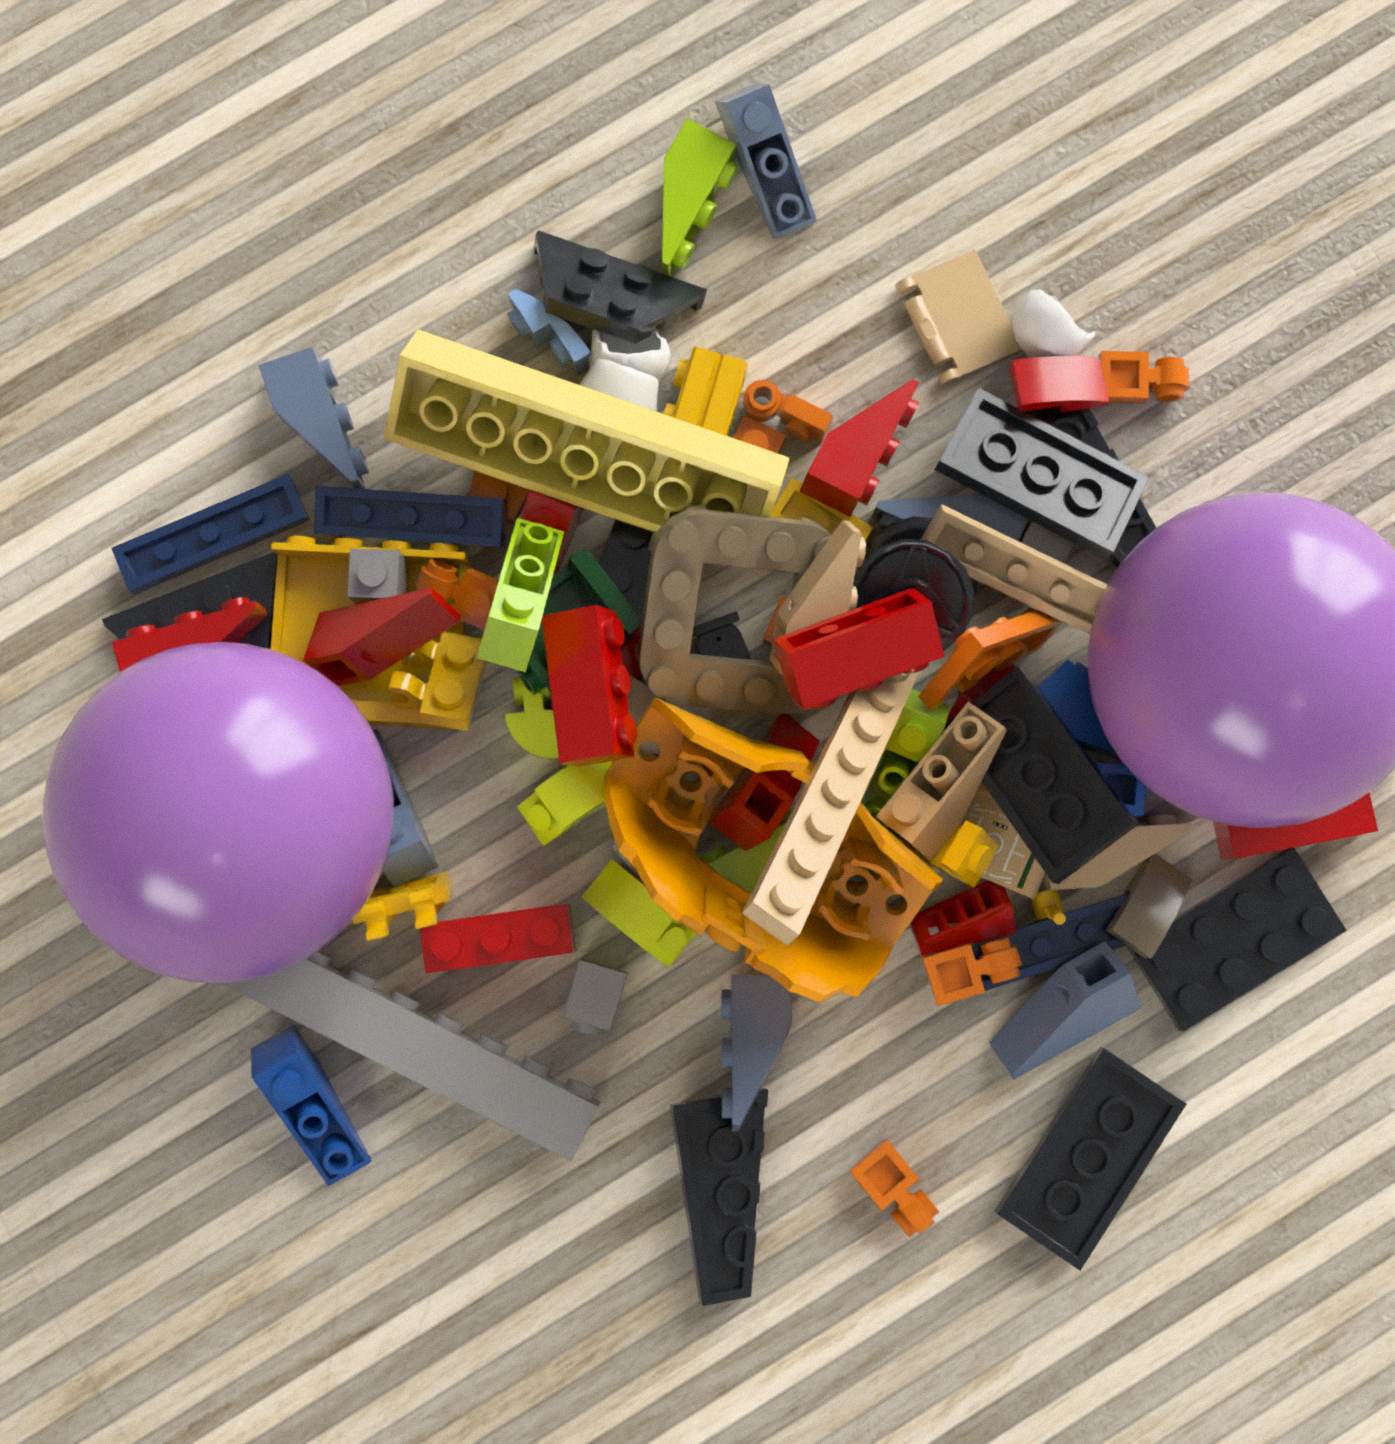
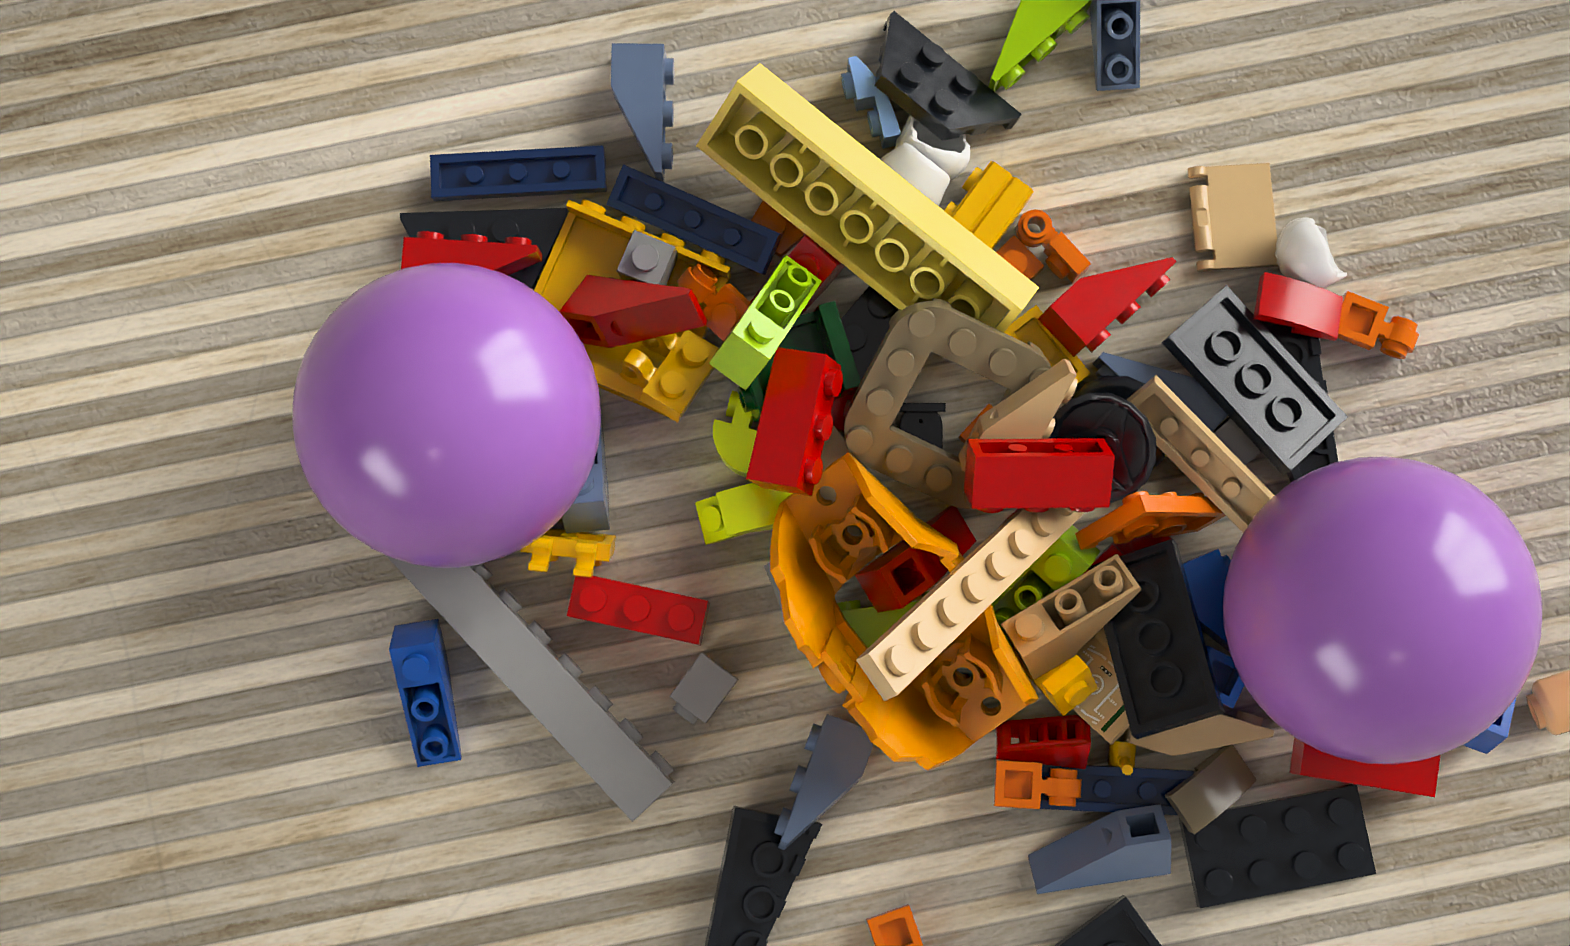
camera: 25 degrees right, 0 degrees up
(630, 908) = (766, 632): neon yellow brick -> none

